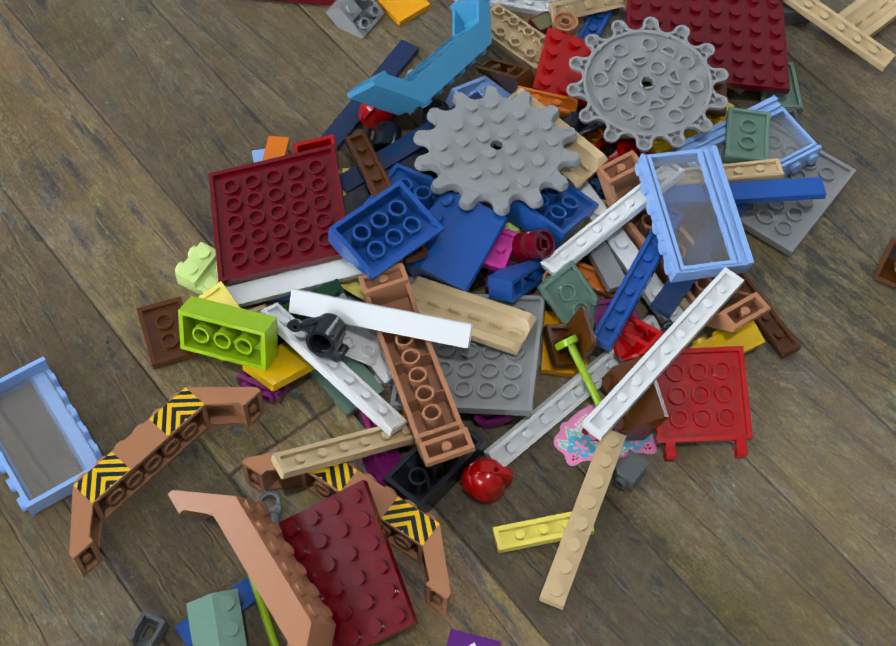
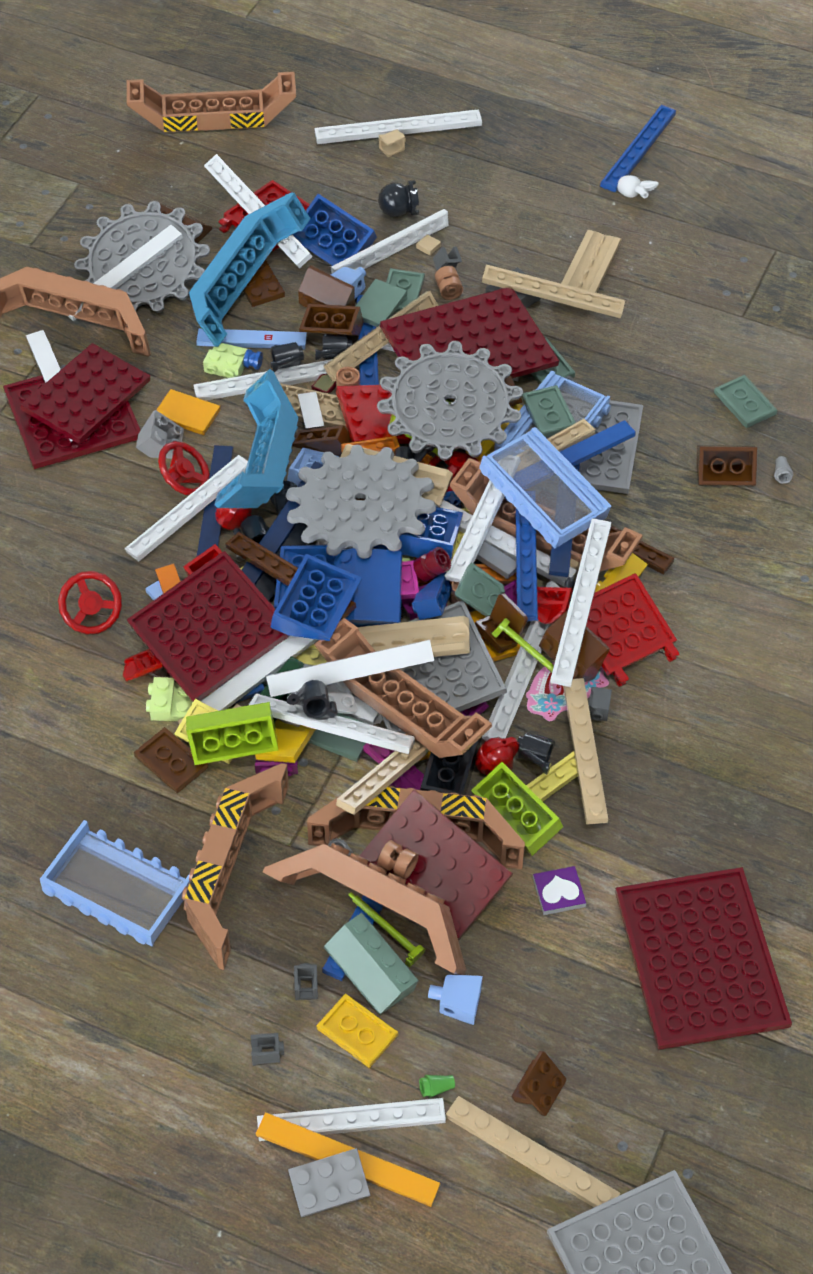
camera: 25 degrees left, 5 degrees down
(187, 142) = (90, 602): none -> red piece
(197, 224) = (141, 665): none -> red slope
(306, 548) = (396, 858): none -> nougat wheel
(328, 92) = (185, 510): none -> white tile
(354, 49) = (182, 469): none -> red piece
(472, 549) = (519, 807): none -> lime brick
(512, 41) = (310, 410): none -> white sticker
(533, 492) = (536, 750): none -> black piece

